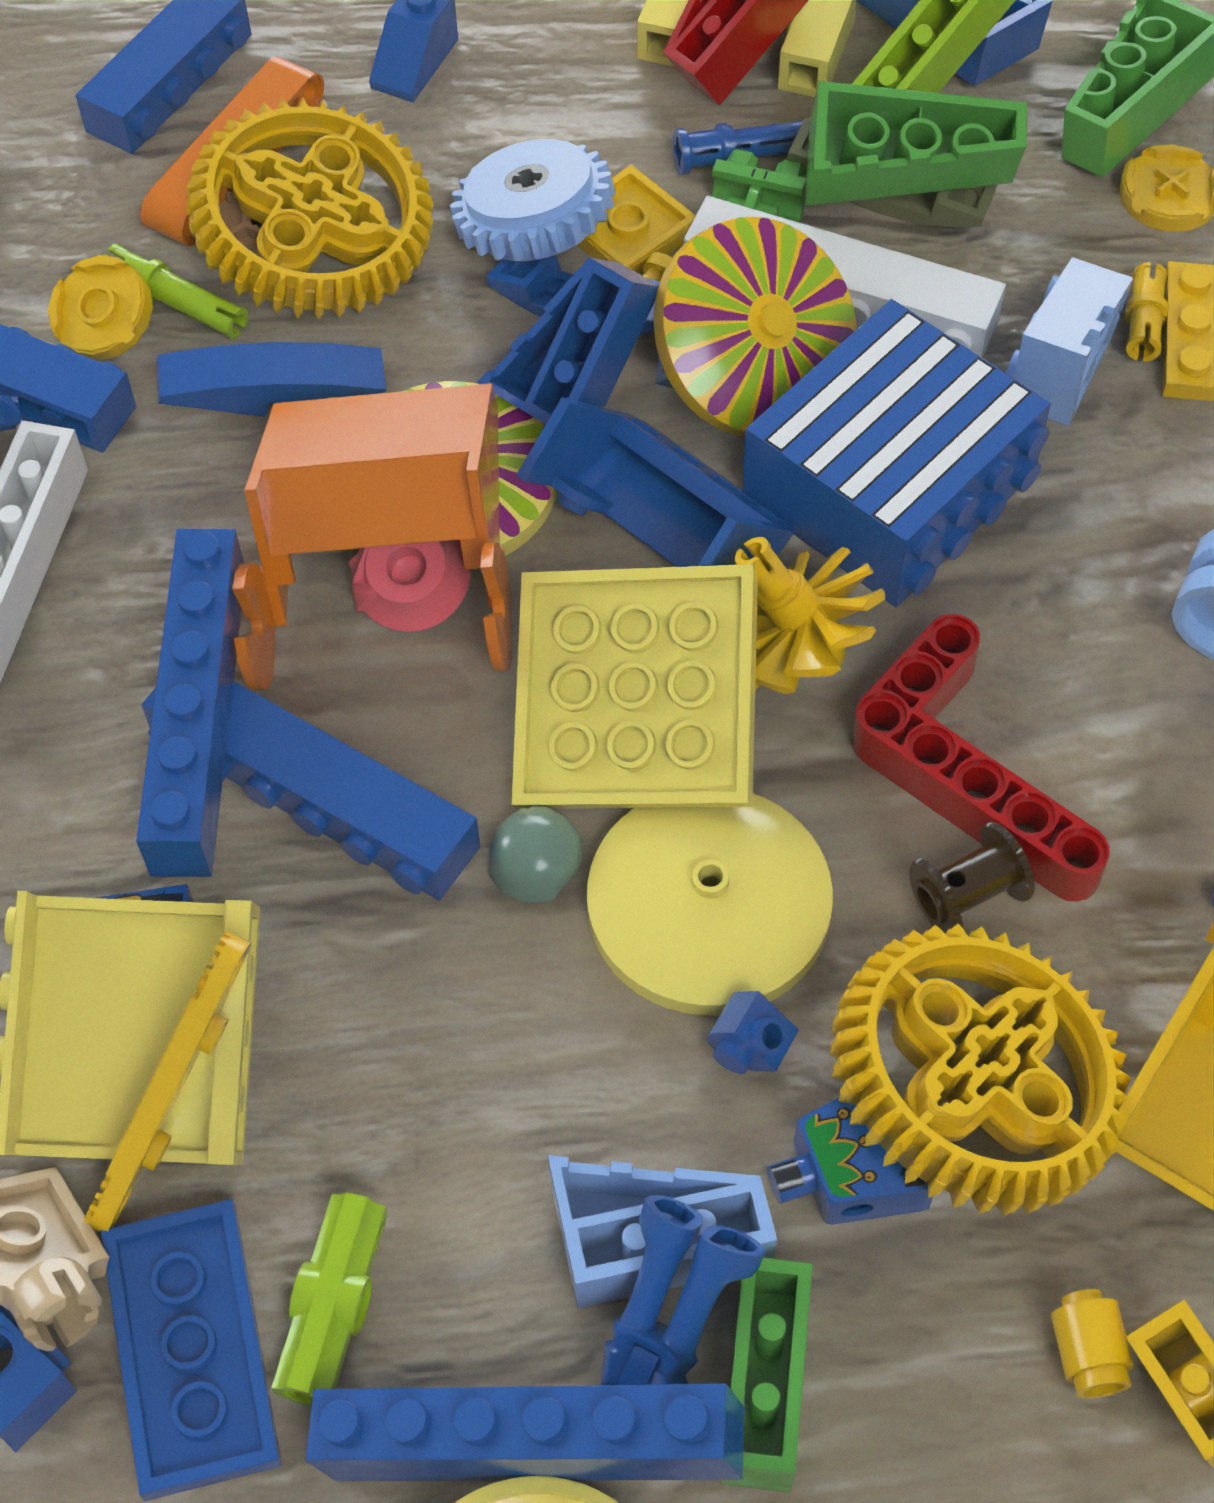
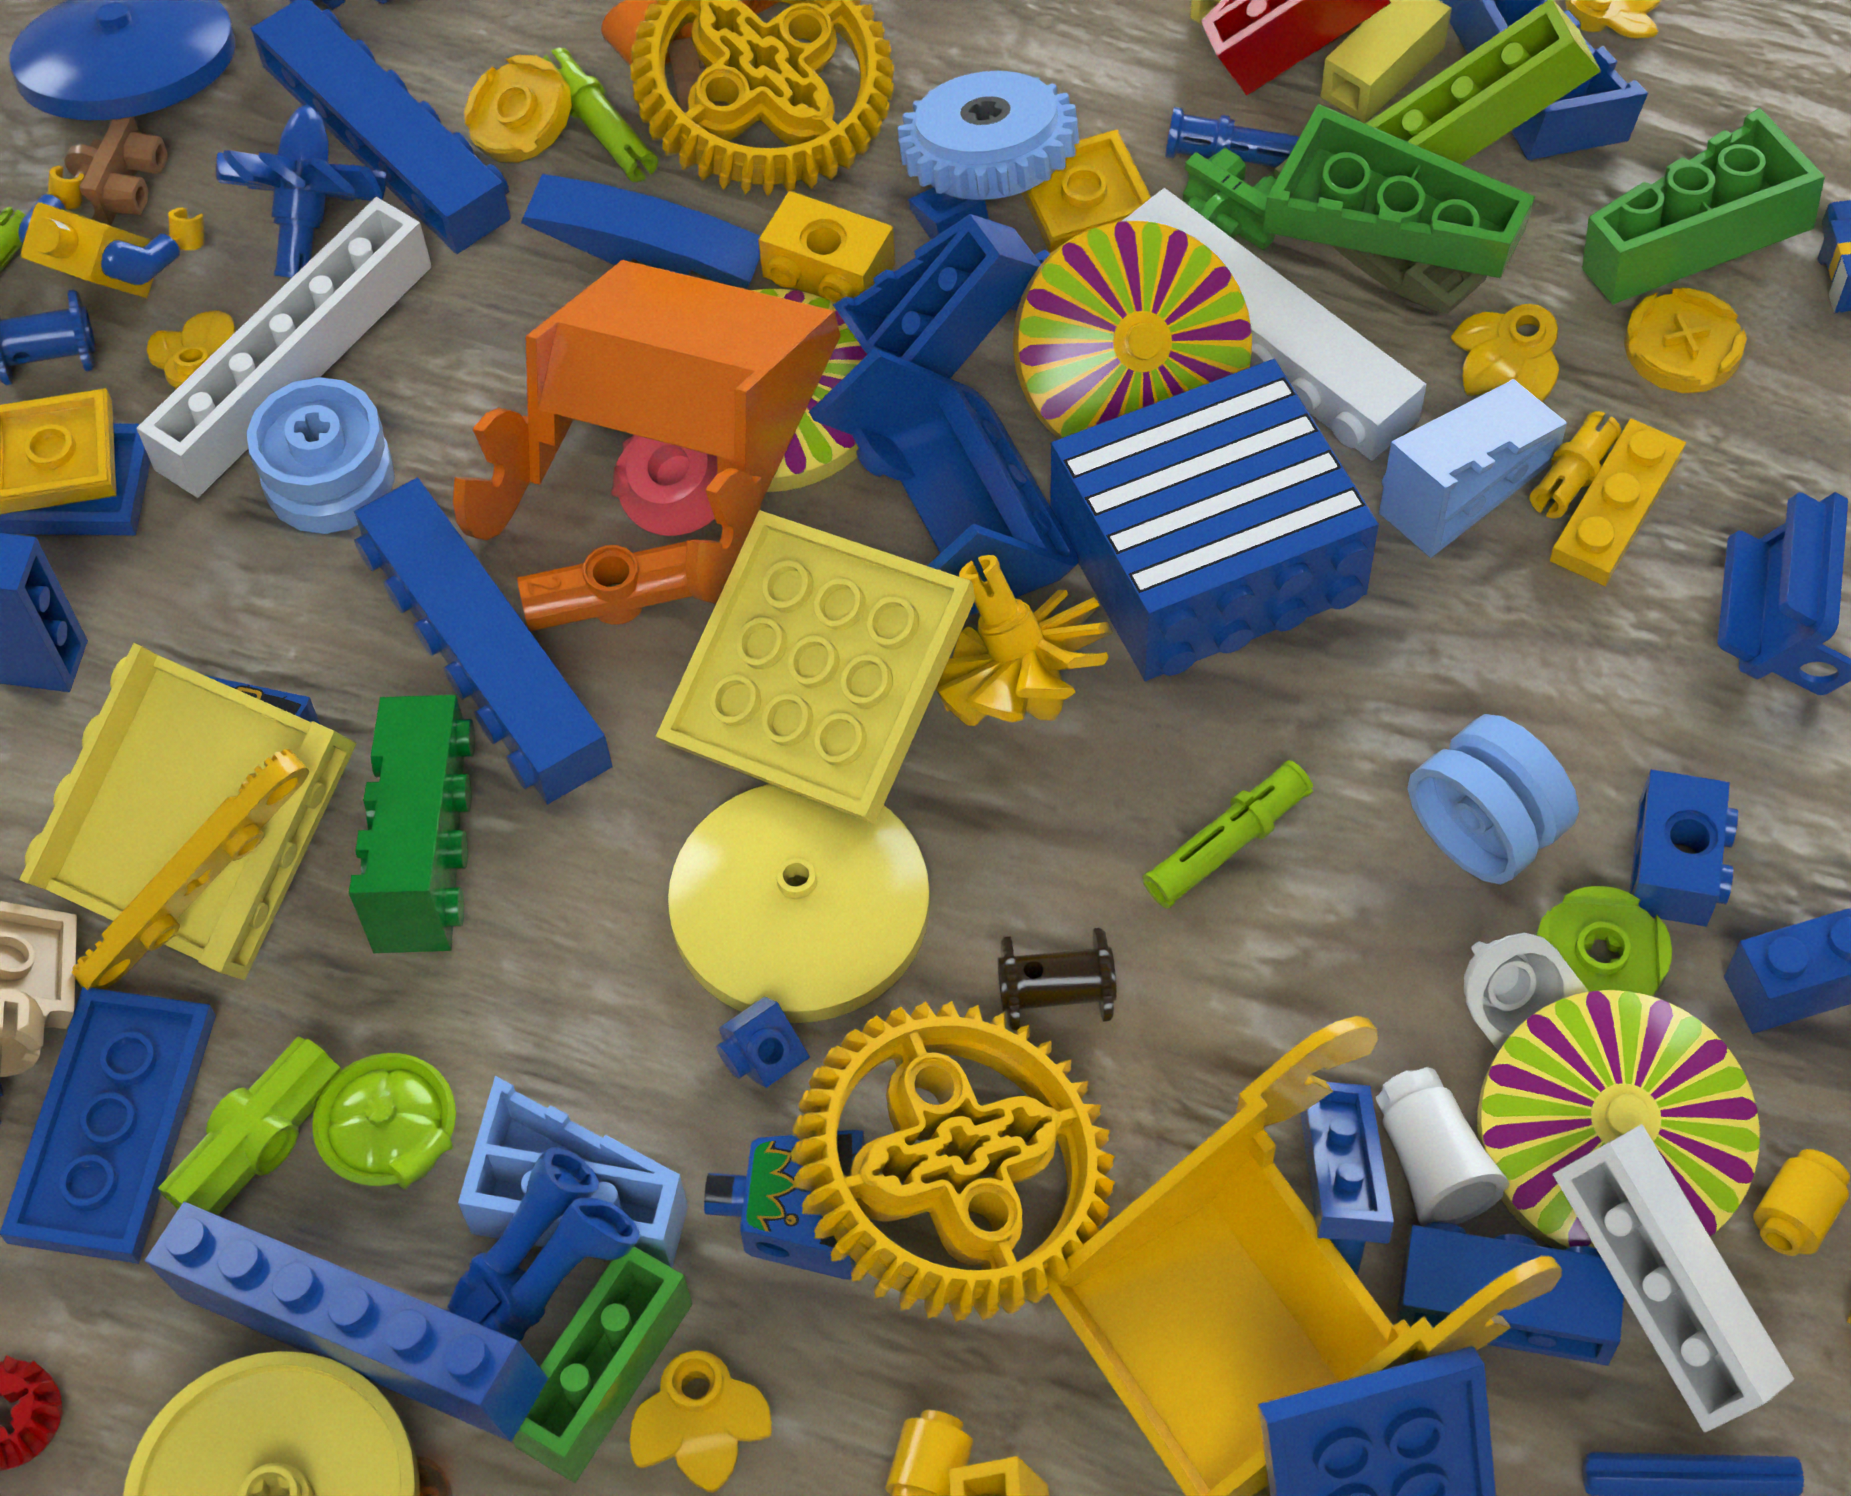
camera: 25 degrees right, 0 degrees up
(79, 666) = (319, 453): none -> light blue wheel
(191, 707) = (386, 530): blue brick -> none
(340, 961) = (413, 824): none -> green wedge
(433, 670) = (581, 589): none -> orange piece
(440, 340) = (824, 248): none -> yellow brick
(451, 1238) = (384, 1120): none -> lime piece
(534, 854) = (654, 792): sand green hair -> none
(875, 1397) = (700, 1430): none -> yellow plate
(963, 766) = (1109, 866): red beam -> none
(1040, 244) = (1503, 354): none -> yellow plate
(1048, 687) = (1250, 816): none -> lime pin

